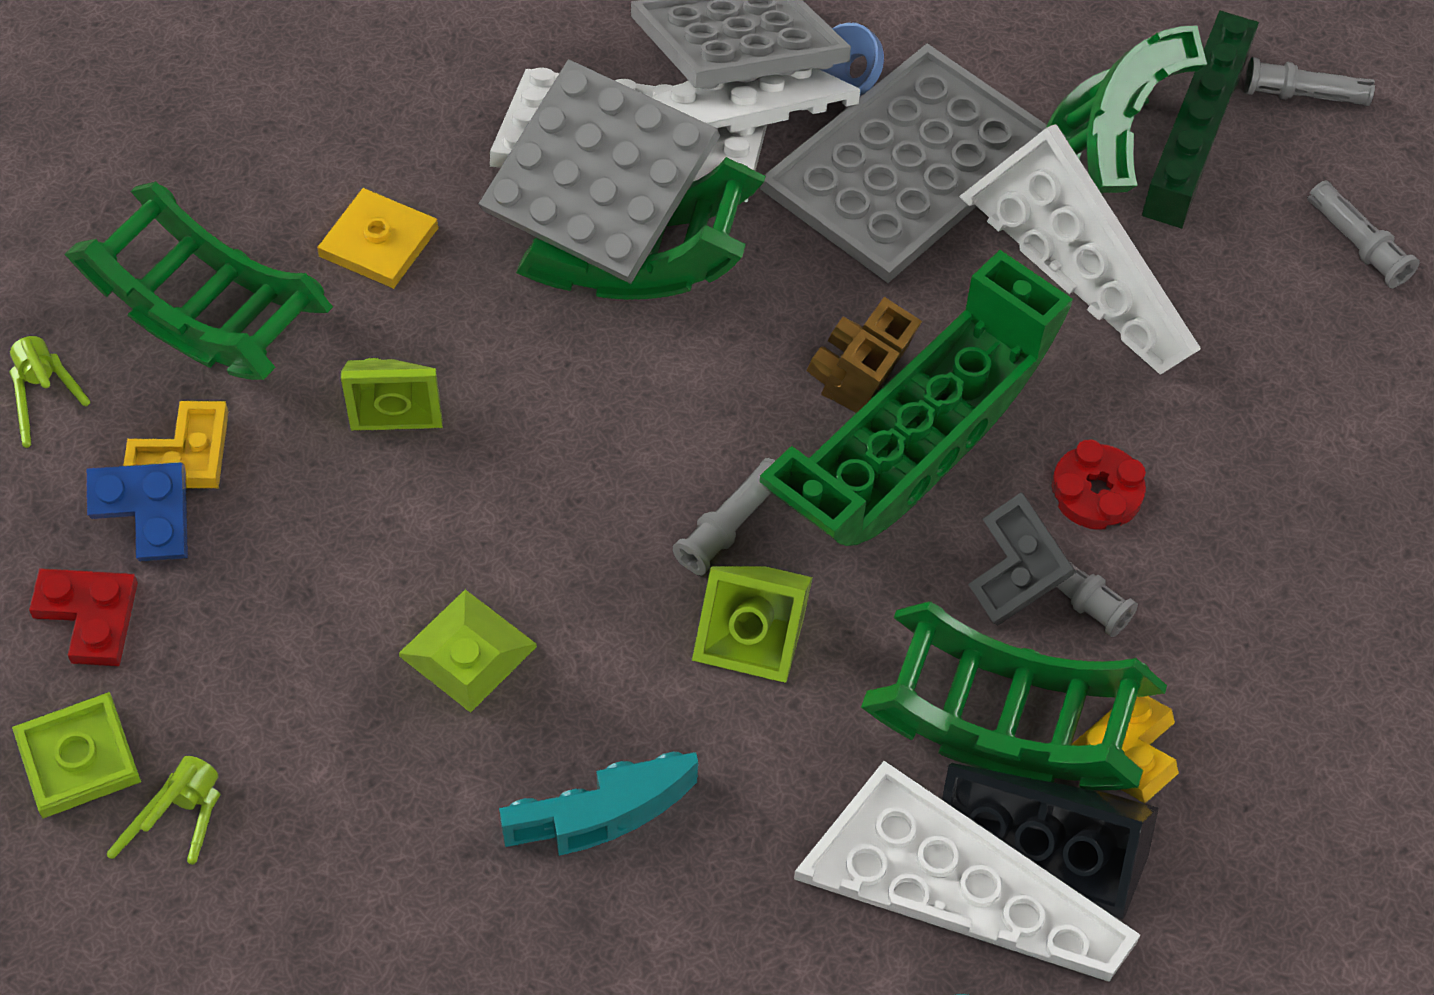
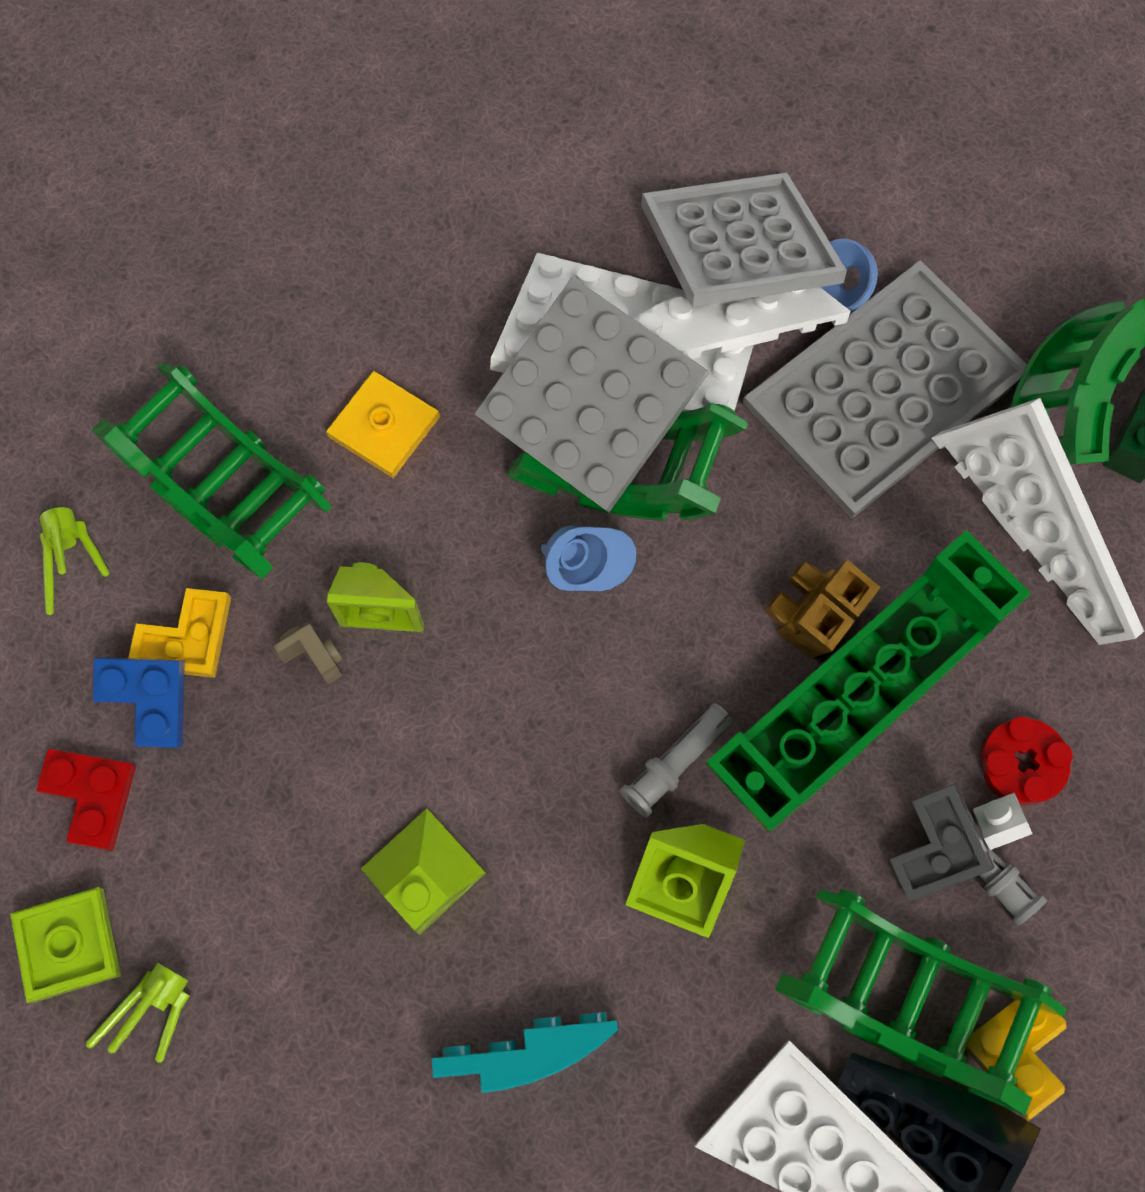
camera: 10 degrees right, 15 degrees up
(320, 440) = (305, 639): none -> dark tan bracket
(615, 335) = (588, 558): none -> medium blue piece
(1080, 534) = (1002, 821): none -> white plate

